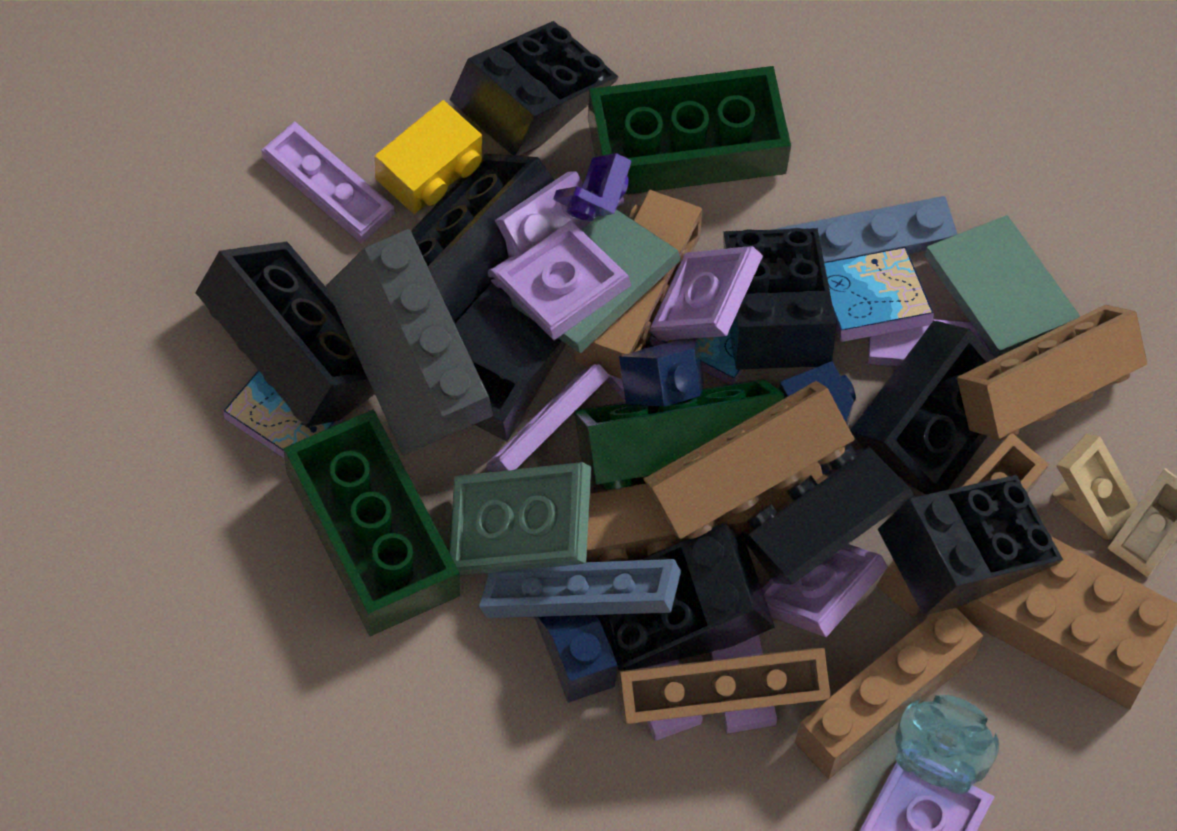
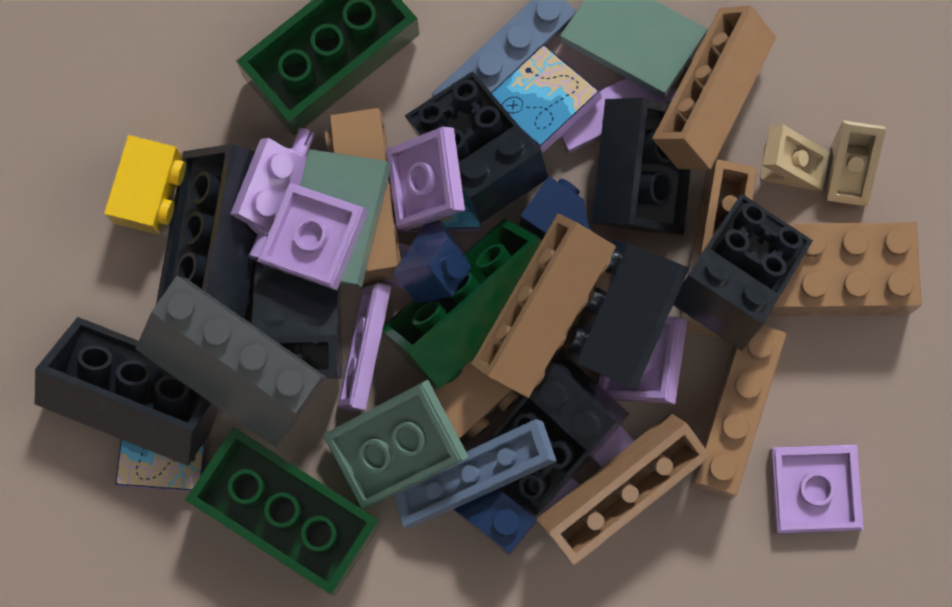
camera: 25 degrees left, 15 degrees up
(328, 182) = (77, 247): lavender tile -> none
(529, 86) = (185, 76): black slope -> none
(601, 190) = (298, 144): dark purple bracket -> none
(935, 763) = (797, 448): clear light blue plate -> none

